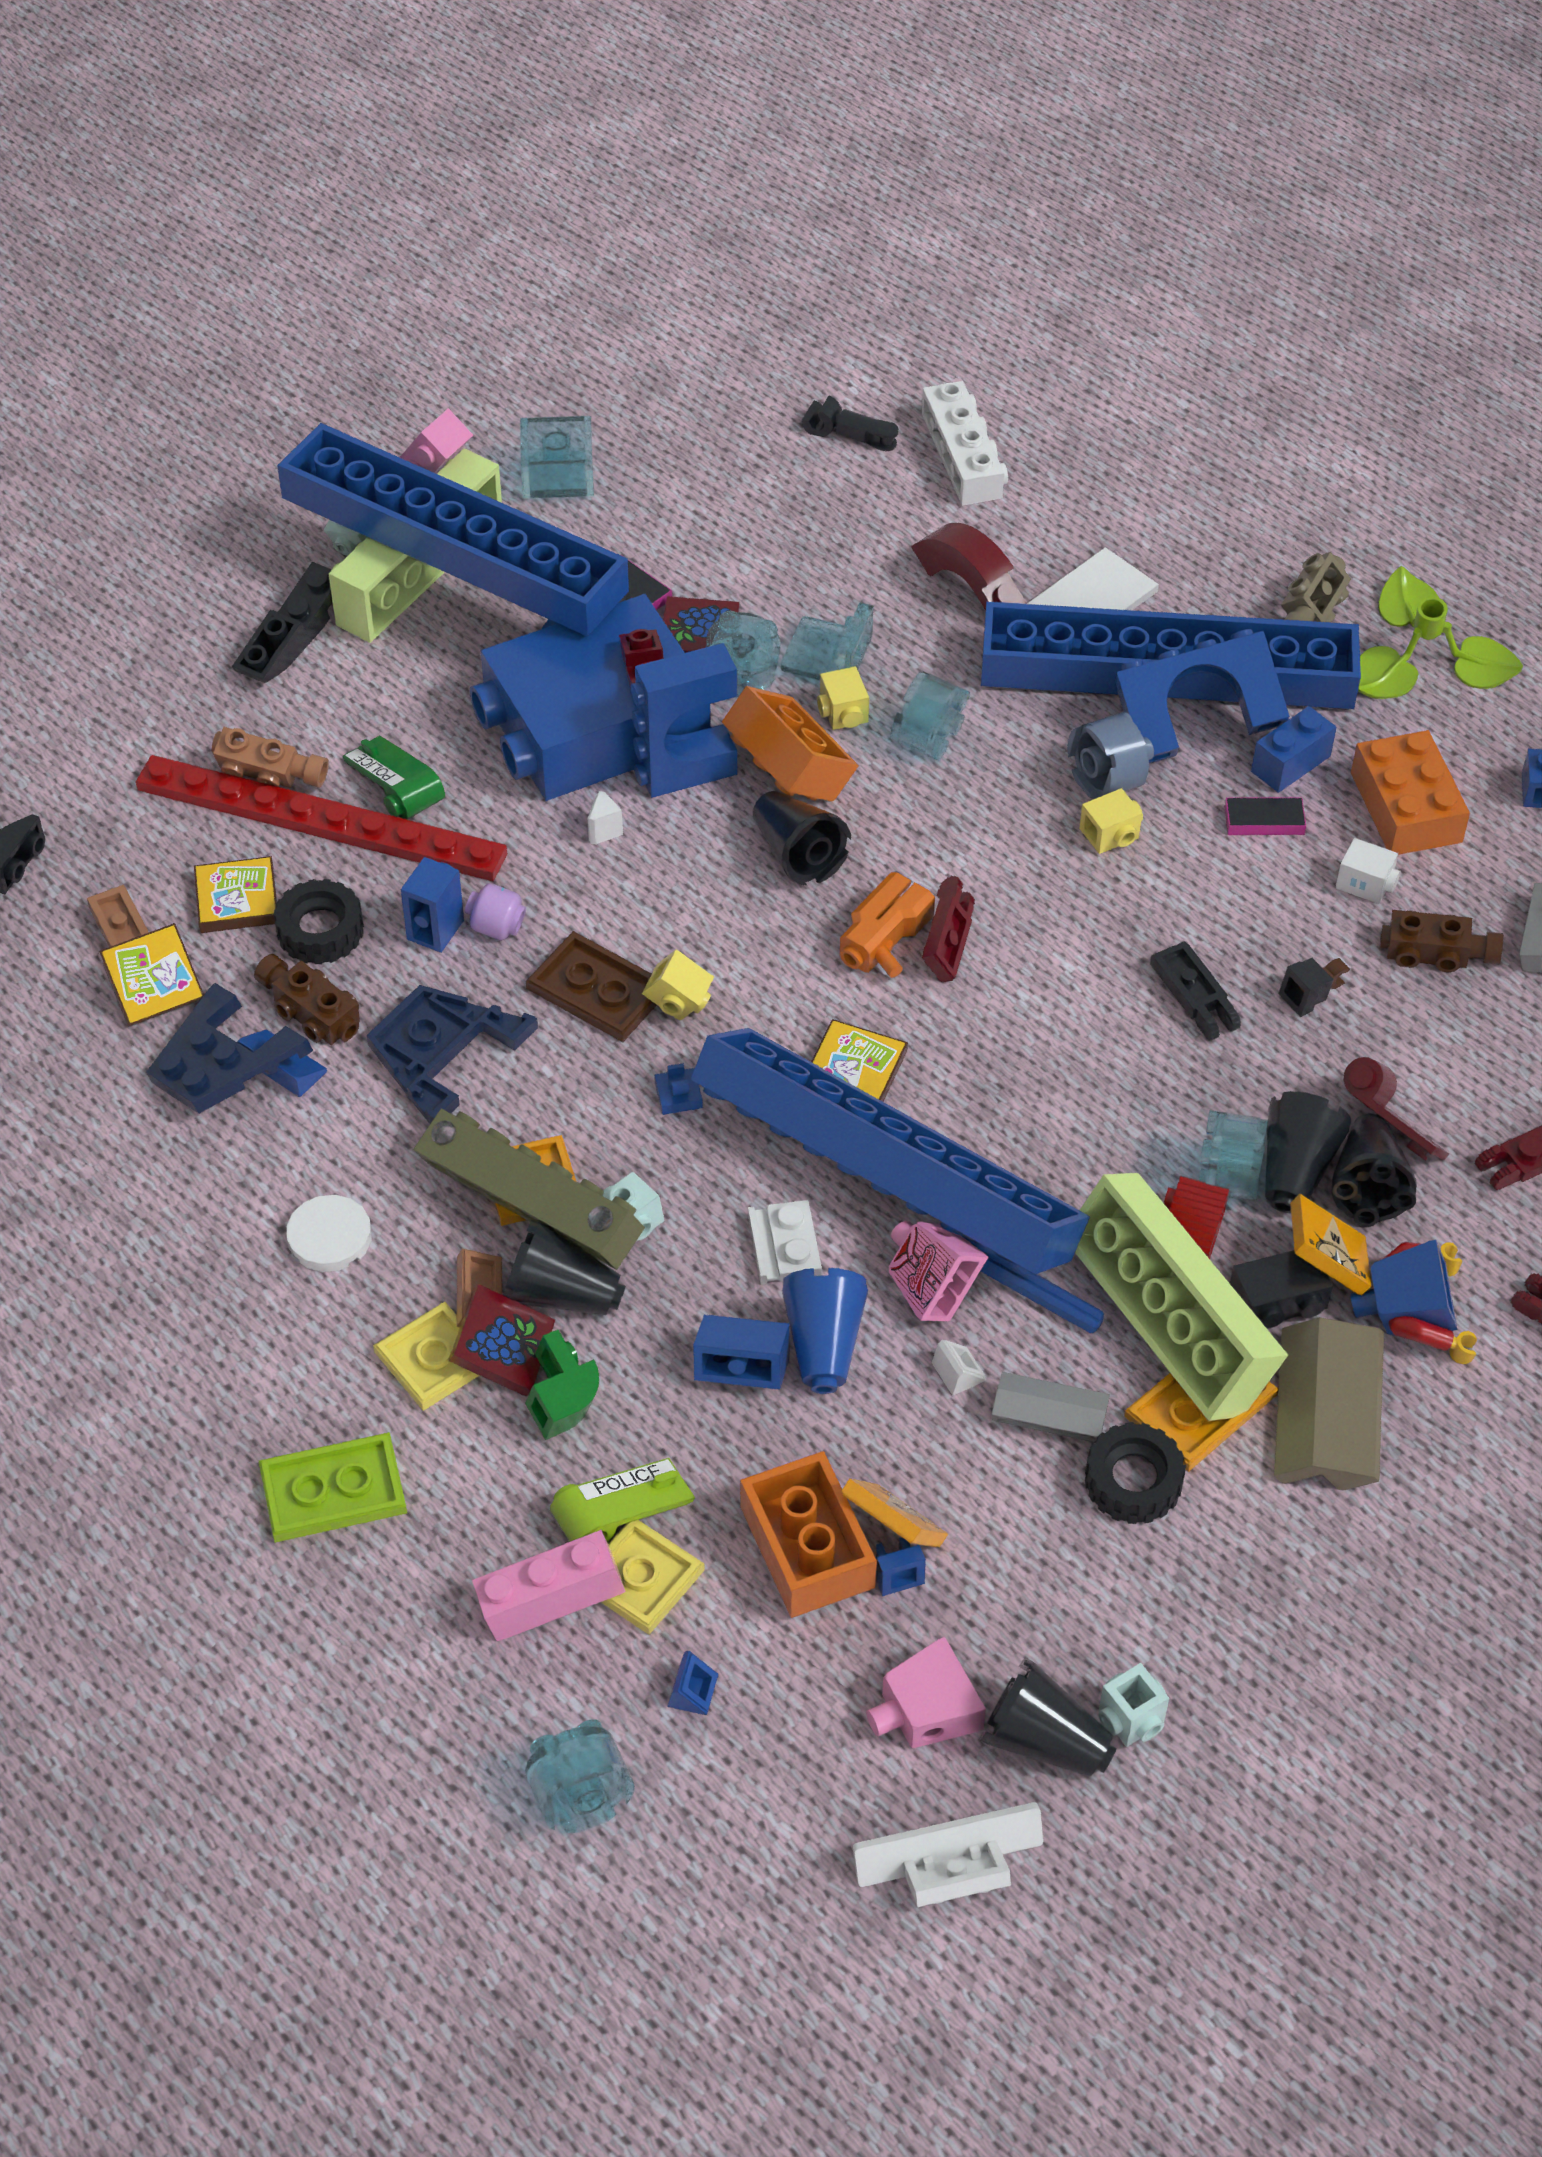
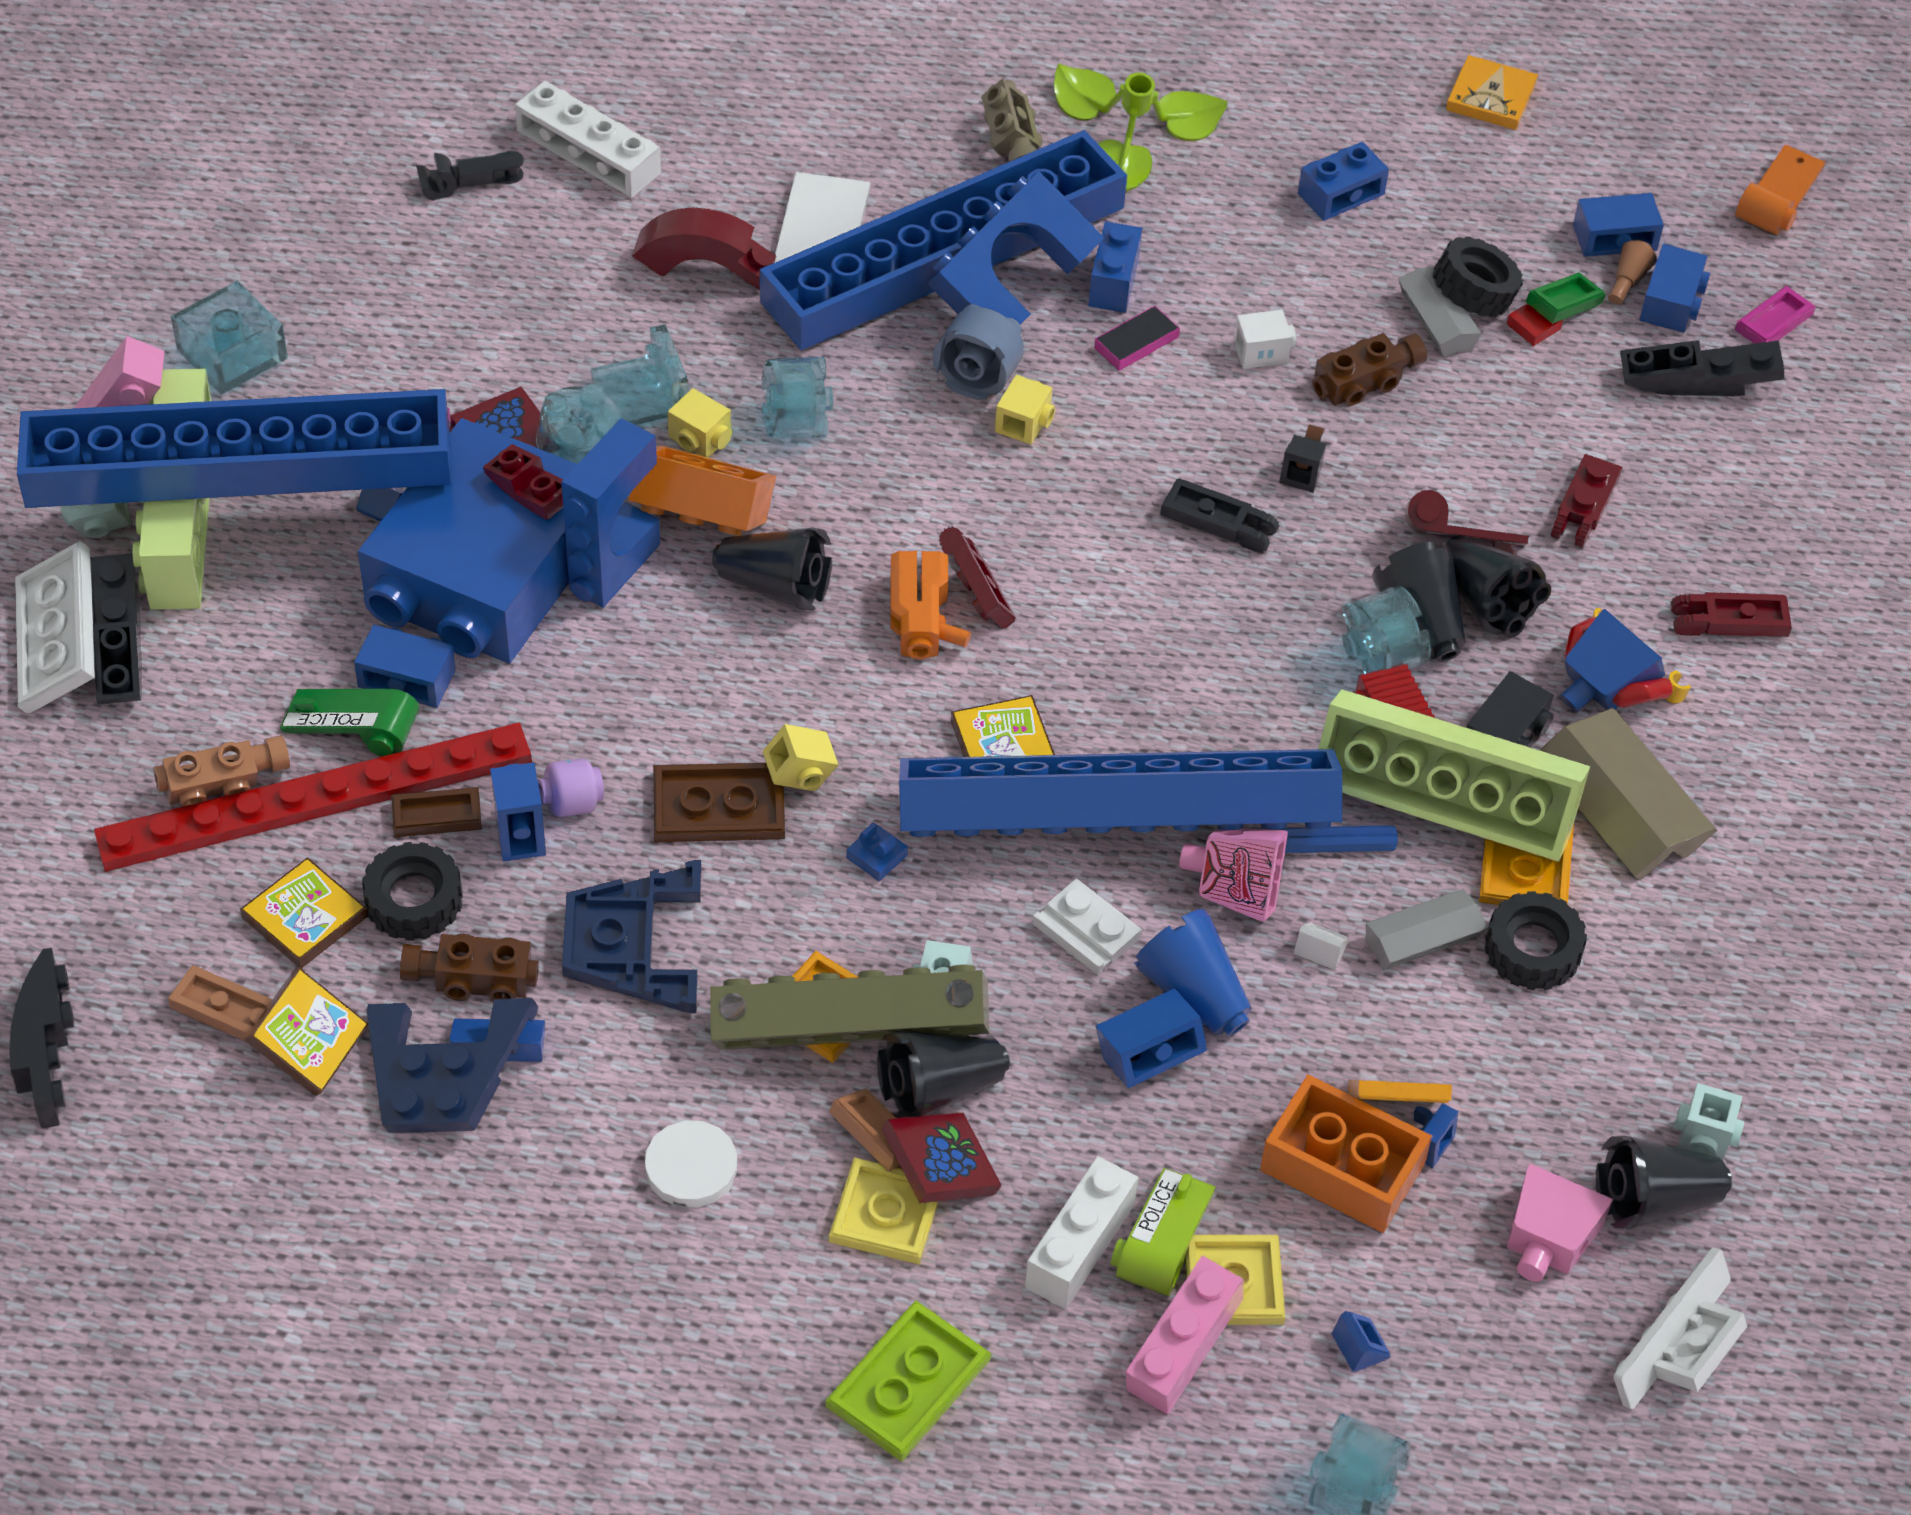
camera: 40 degrees left, 0 degrees up
(250, 599) = (54, 627): none -> white tile
(381, 872) = (436, 812): none -> reddish brown tile
(463, 758) = (405, 663): none -> blue brick
(551, 1459) = (1081, 1232): none -> white brick
(569, 1390) = (1039, 1158): green brick -> none
(604, 819) = (589, 647): white slope -> none
(1330, 1245) = (1521, 662): light orange tile -> none
(1410, 792) = (1238, 254): orange brick -> none

